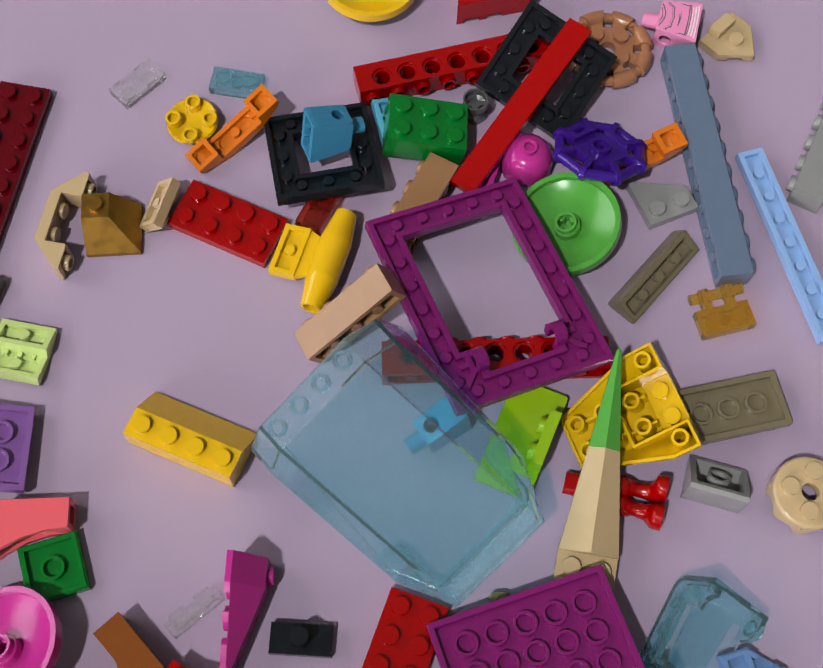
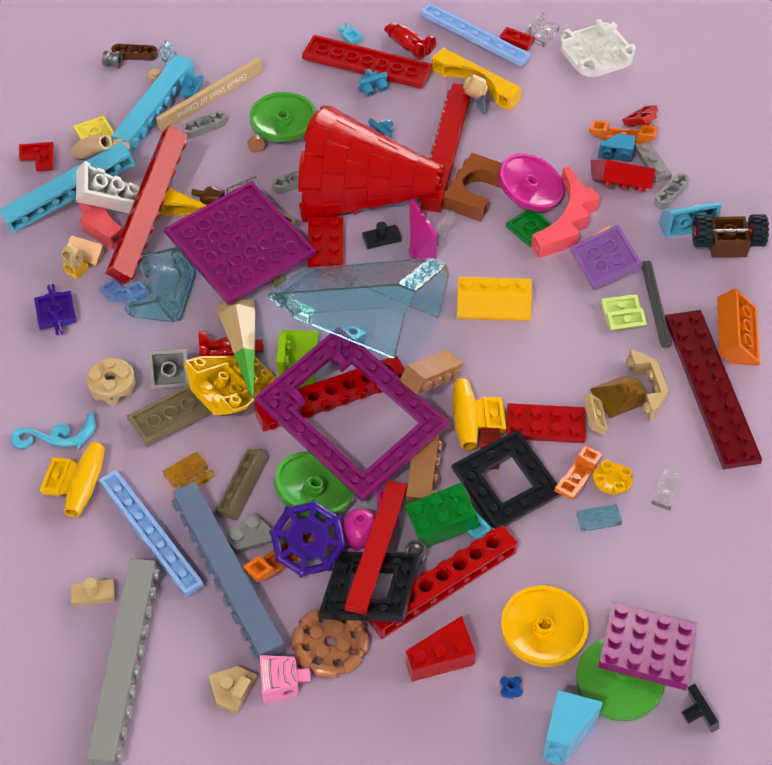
camera: 160 degrees right, 15 degrees down
(328, 131) = (505, 475): dark azure torso -> none

